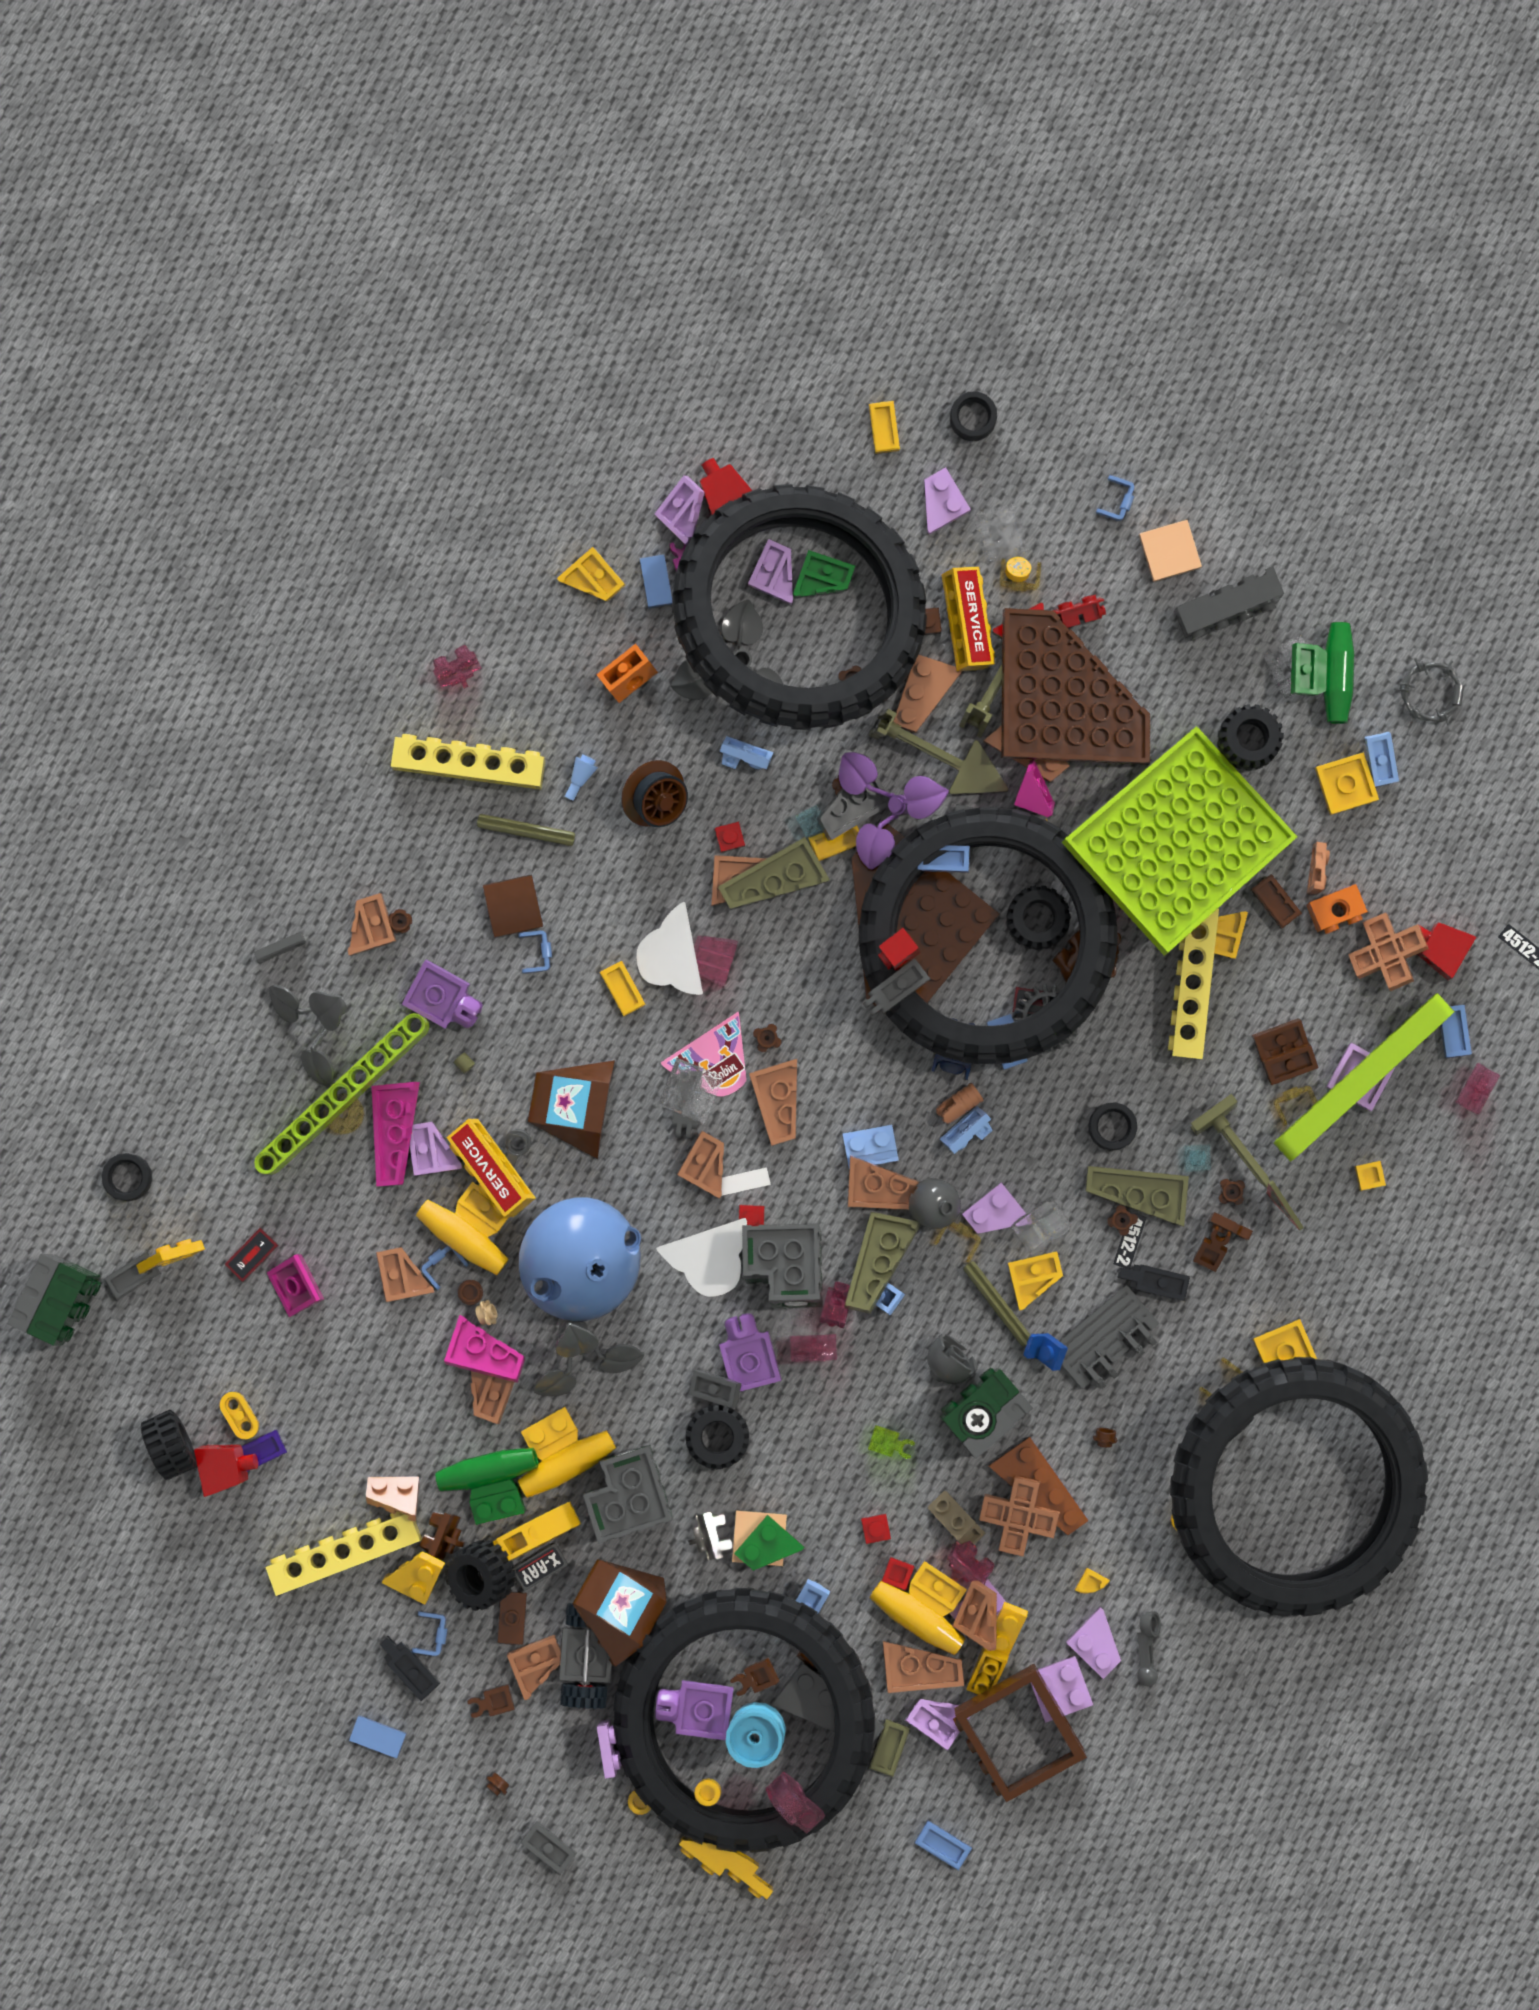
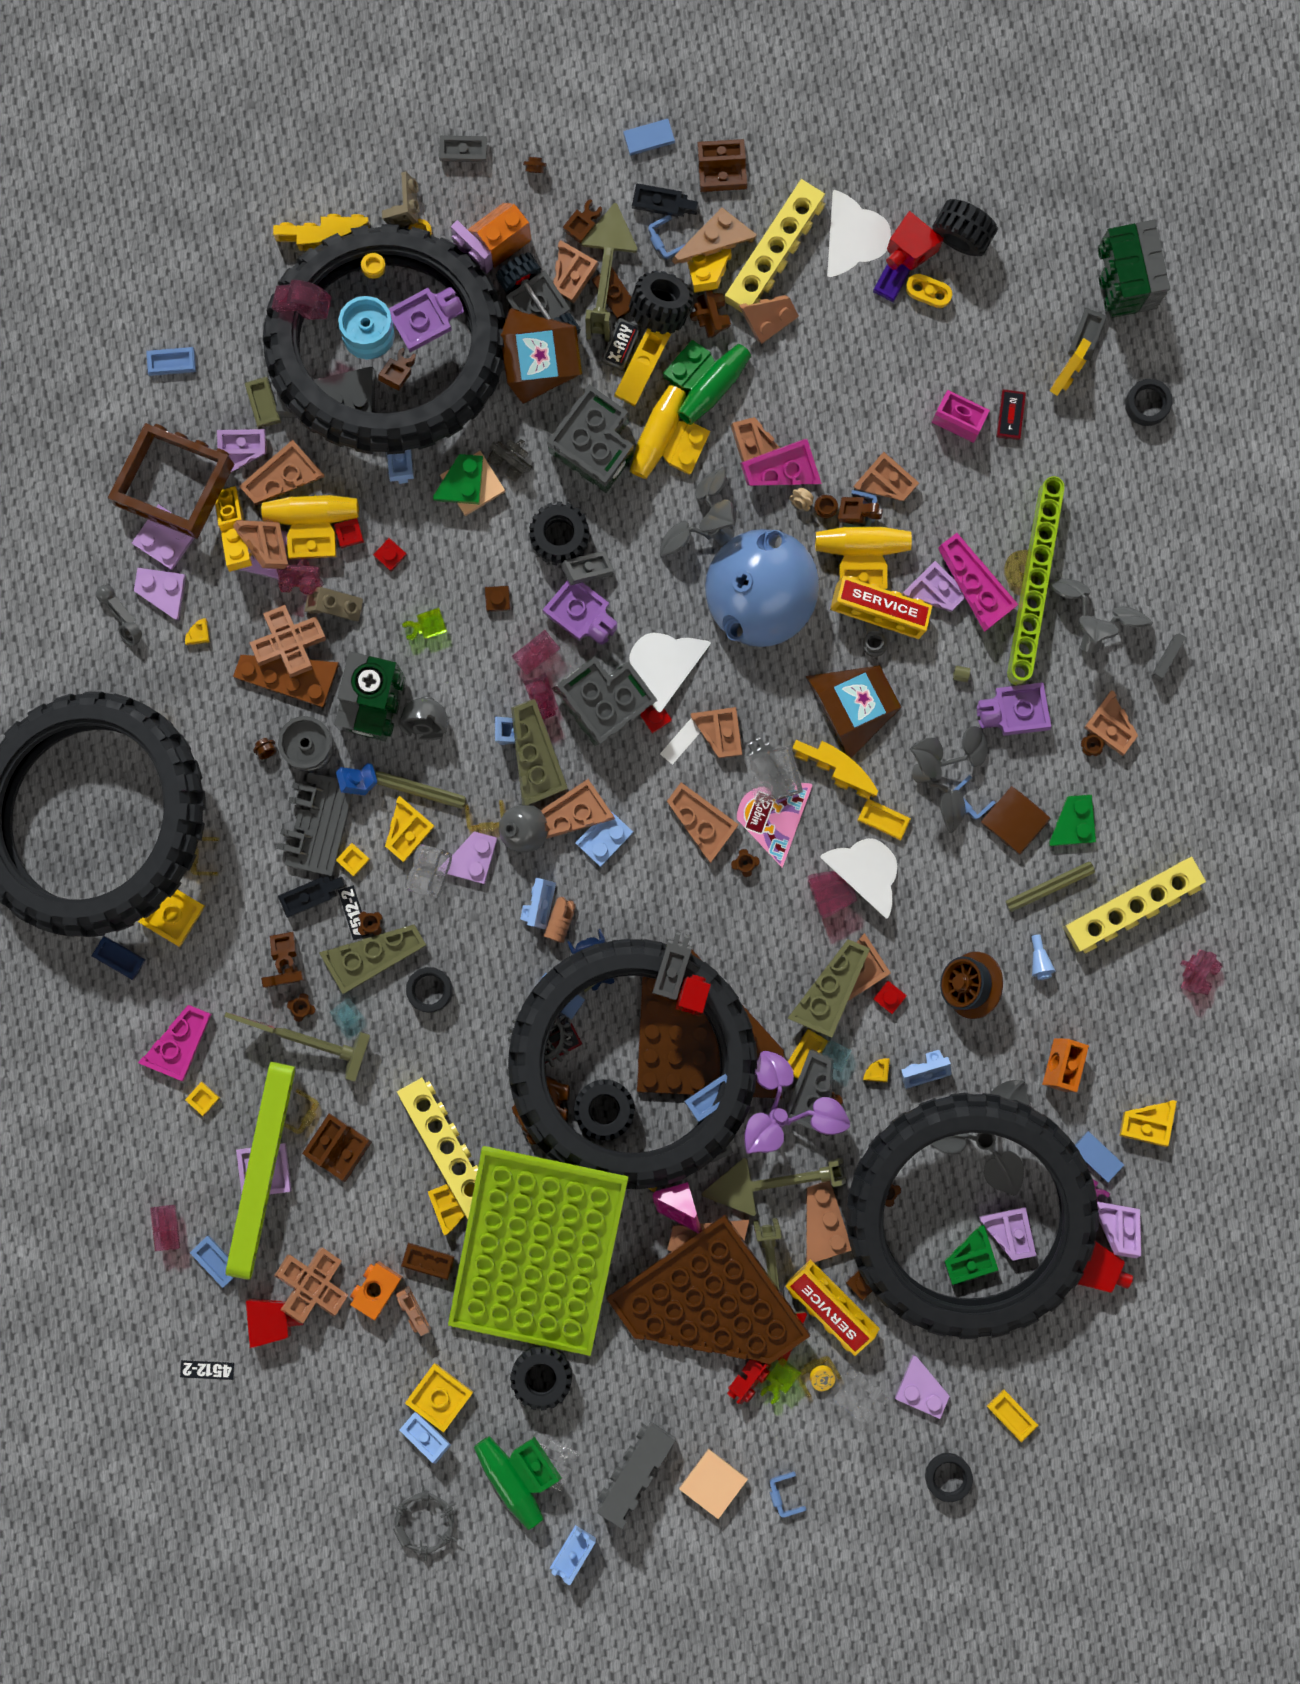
camera: 145 degrees right, 0 degrees up
(264, 1514) = (854, 235): none -> white sticker
(333, 1662) = (722, 165): none -> reddish brown slope
(383, 1601) = (719, 233): none -> medium nougat wing
(447, 1270) = (856, 508): none -> reddish brown plate
(464, 867) = (1075, 822): none -> green wing
(476, 1671) = (611, 235): none -> olive piece
(554, 1002) = (929, 755): none -> dark grey plant
(572, 1746) = (502, 232): none -> orange slope
(624, 1052) = (846, 771): none -> yellow slope
(640, 1823) = (408, 212): none -> dark tan bracket
(785, 783) = (877, 1071): none -> yellow tile
(811, 1421) = (497, 598): none -> reddish brown plate
(1051, 592) = (782, 1379): none -> clear neon green plate
(1053, 1407) = (311, 757): none -> dark grey wheel
(1098, 1285) = (352, 859): none -> yellow tile
(1327, 577) = (573, 1554): none -> light blue hinge
(1357, 1347) = (118, 957): none -> dark blue tile
(1358, 1236) = (178, 1045): none -> dark pink wing

